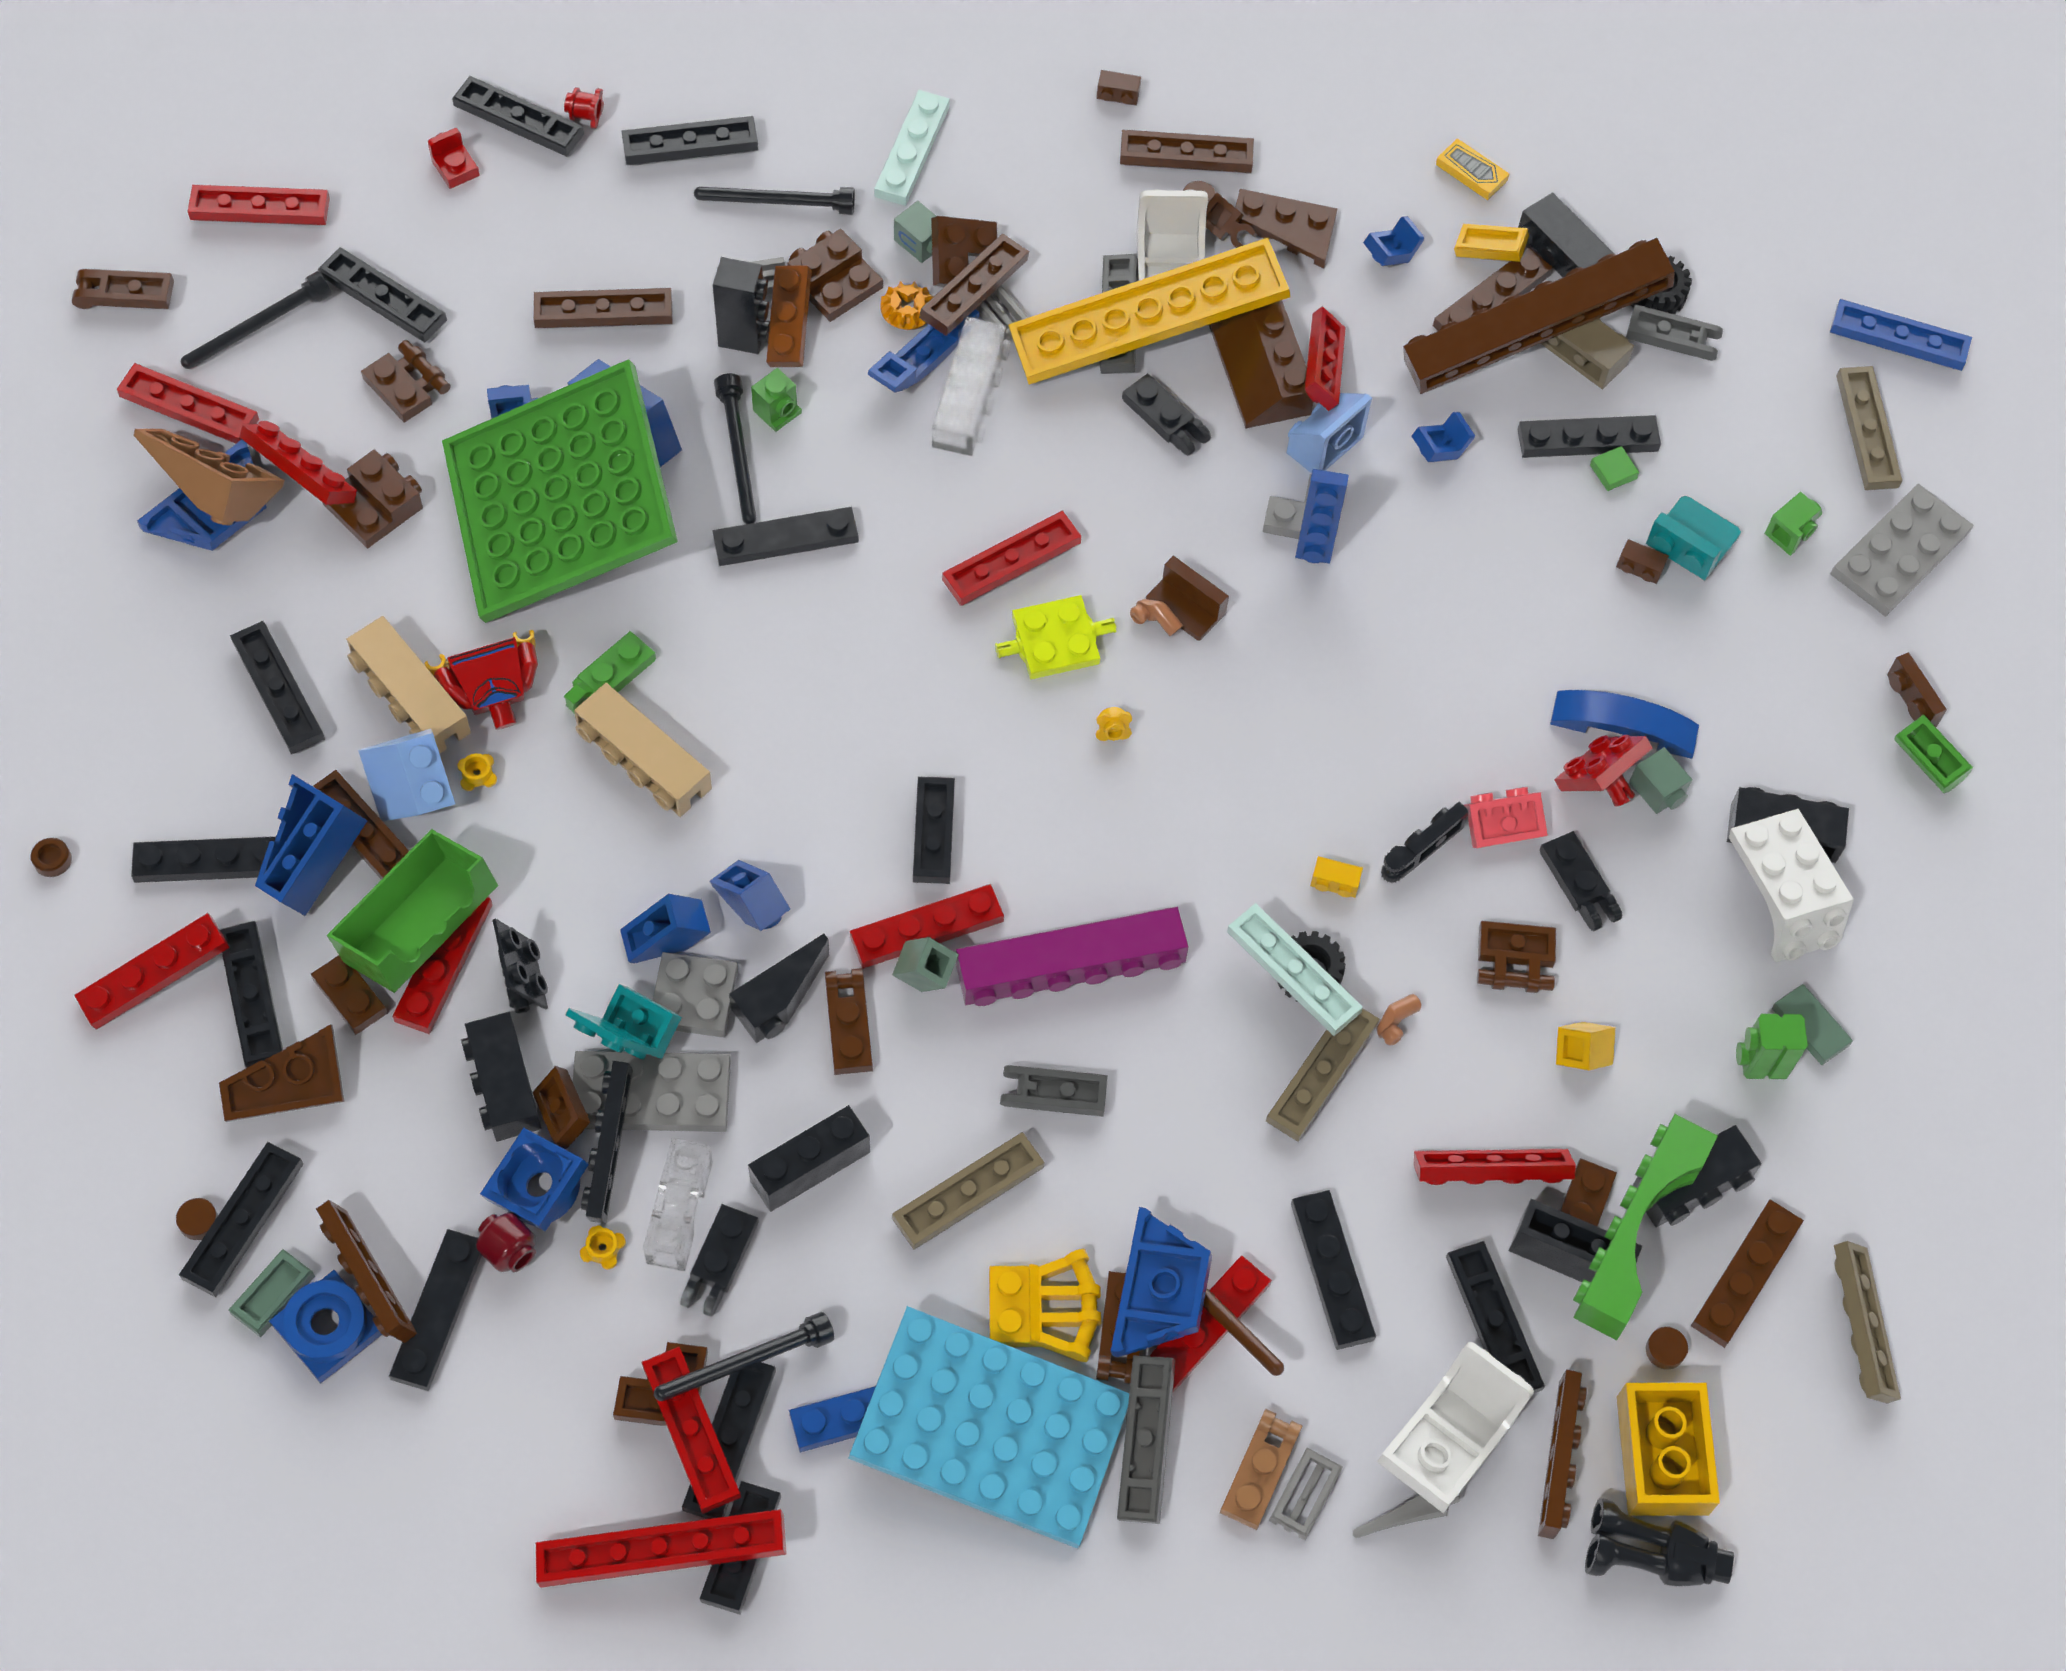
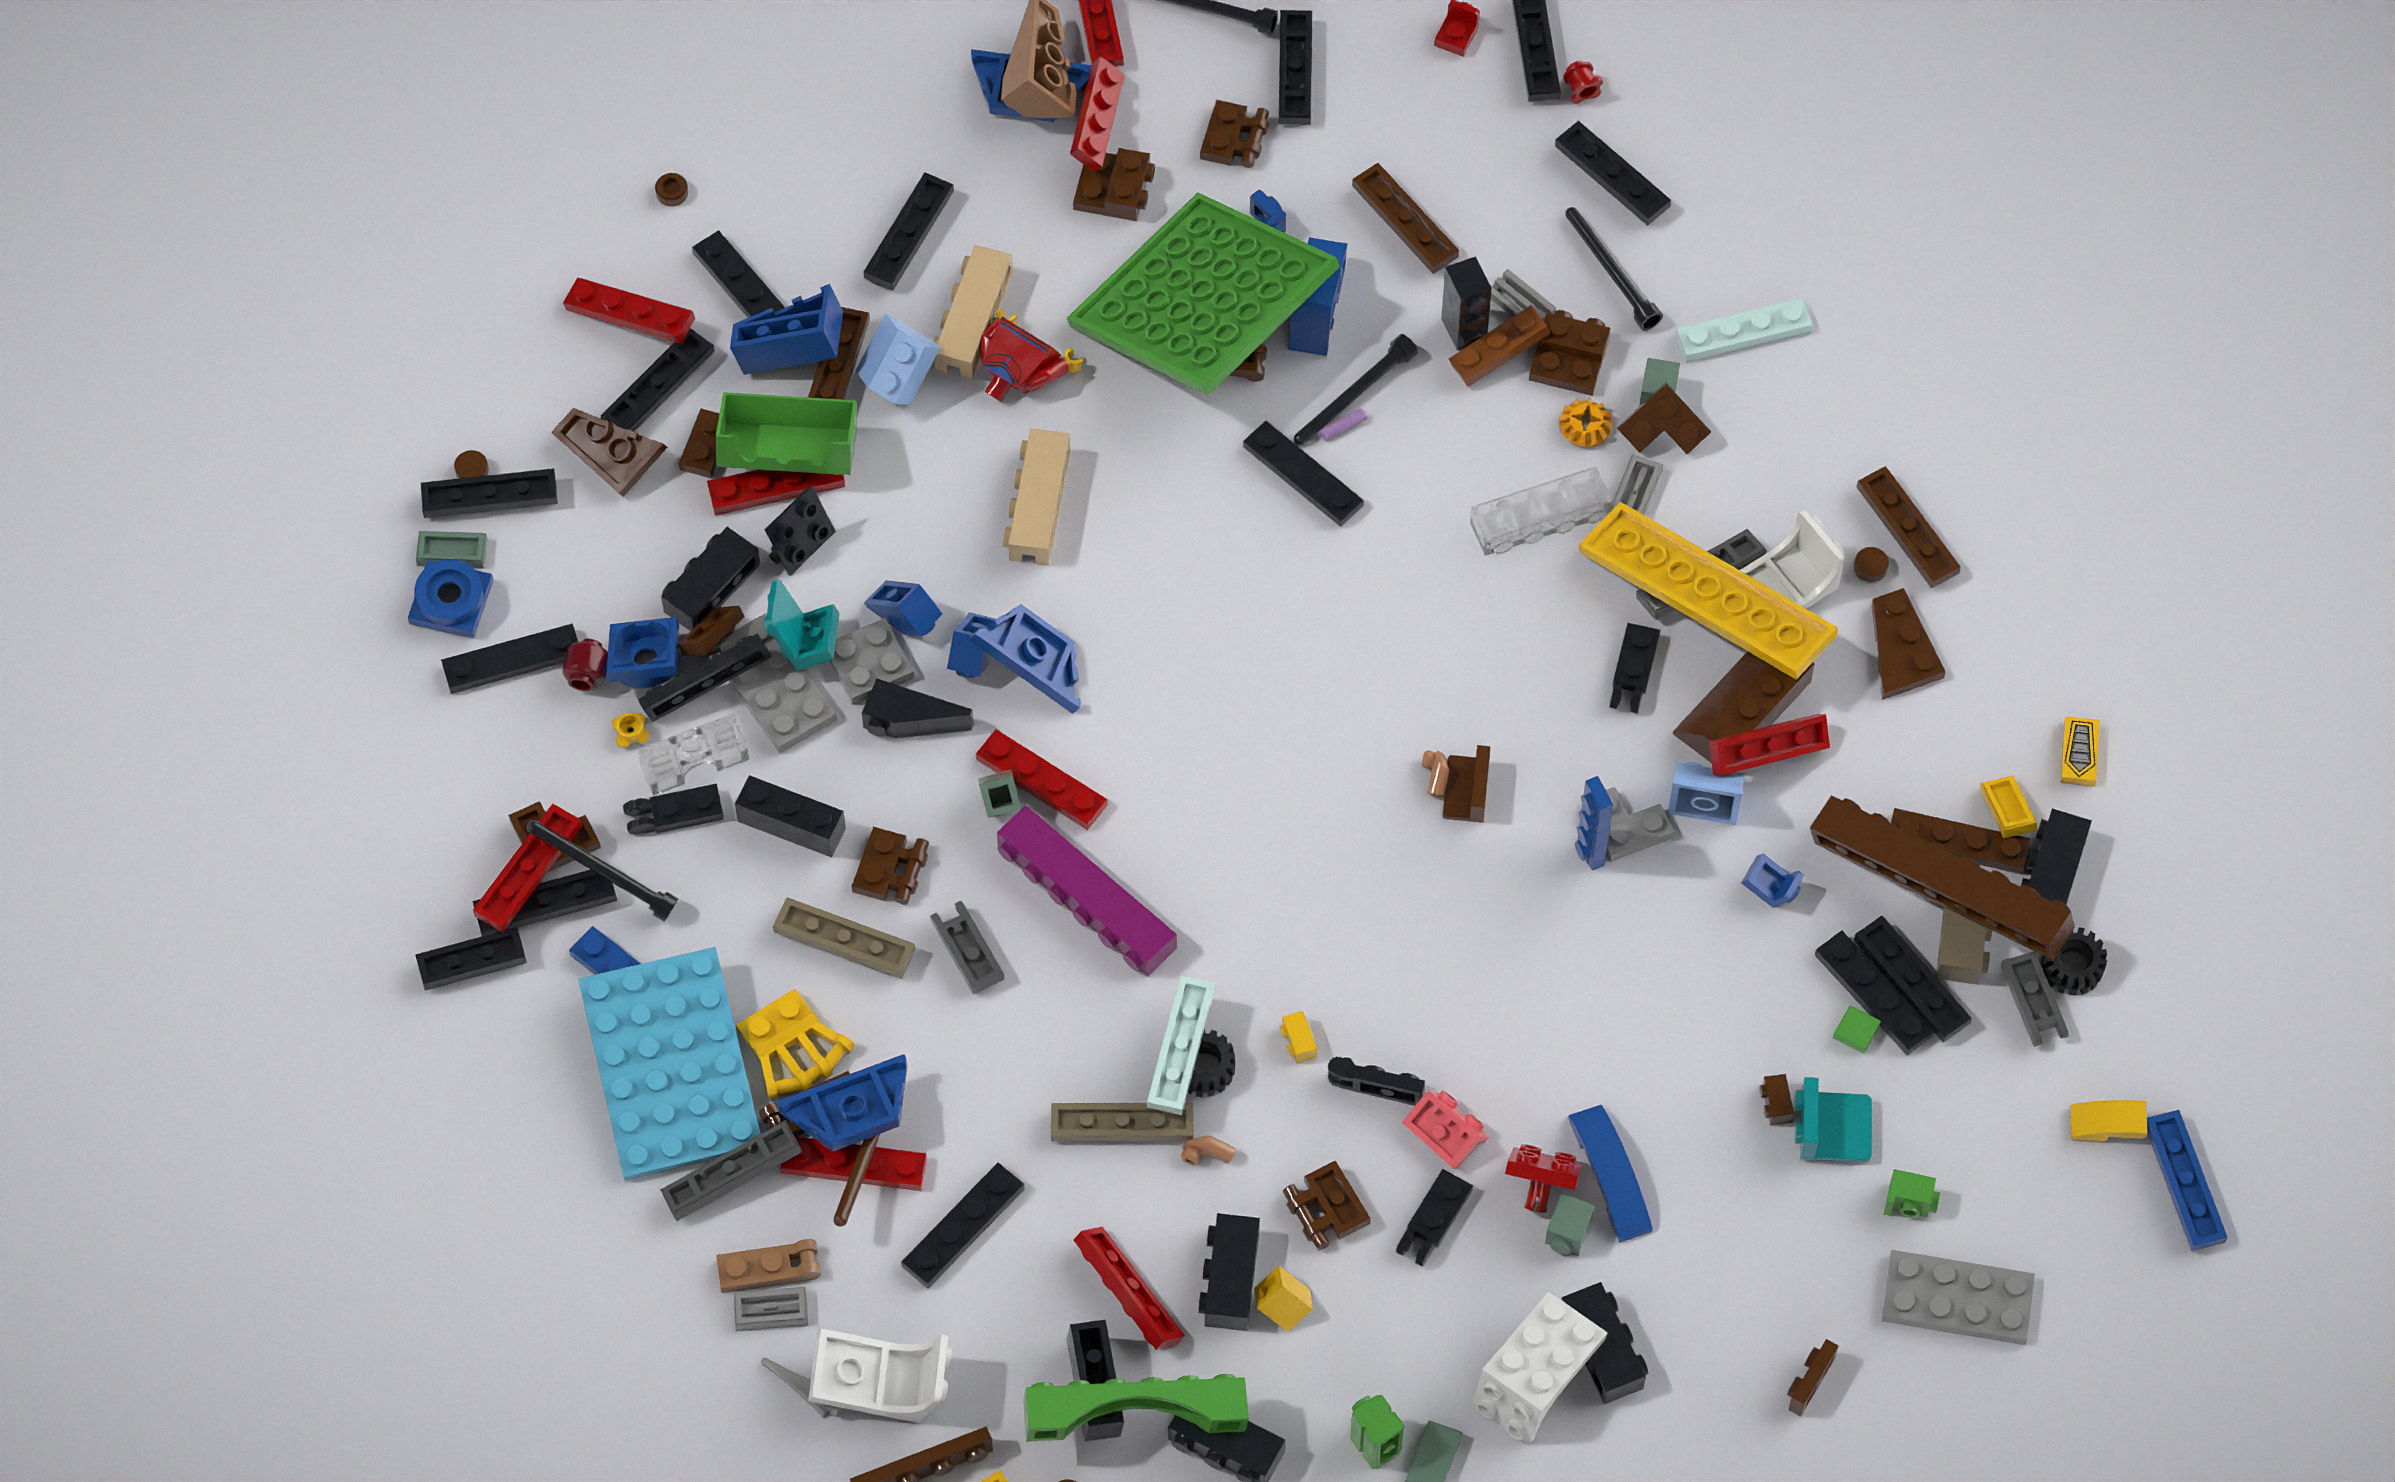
camera: 60 degrees right, 0 degrees up
(358, 1260) = (502, 592): reddish brown plate -> none
(473, 763) = (940, 395): yellow plate -> none
(615, 666) = (1093, 434): bright green hinge -> none
(660, 1548) = (432, 906): red plate -> none
(762, 477) = (1342, 424): none -> lavender piece
(775, 399) = (1415, 387): bright green brick -> none
(805, 848) = (1034, 653): none -> blue wing
(848, 1023) = (923, 776): reddish brown plate -> none
(910, 1112) = (880, 864): none -> reddish brown plate
(917, 357) = (1547, 460): blue slope -> none
(933, 830) = (1123, 732): black plate -> none
(974, 284) = (1634, 453): plate -> none
(1011, 558) = (1406, 638): red plate -> none
(1055, 637) = (1360, 713): neon yellow plate -> none
(1113, 724) = (1311, 799): yellow plate -> none
(1118, 87) = (1932, 439): piece -> none
(1223, 219) = (1858, 594): reddish brown plate -> none
(1395, 245) = (1941, 734): blue bracket -> none
(1492, 1311) = (999, 1361): black plate -> none
(1533, 1071) = (1230, 1271): none -> black brick
(1588, 1192) = (1165, 1365): reddish brown plate -> none
(1597, 400) = (1912, 978): none -> black plate
(1814, 351) = (2108, 1119): none -> yellow slope
(1869, 428) = (2061, 1204): dark tan plate -> none
(1933, 754) = (1759, 1422): bright green brick -> none

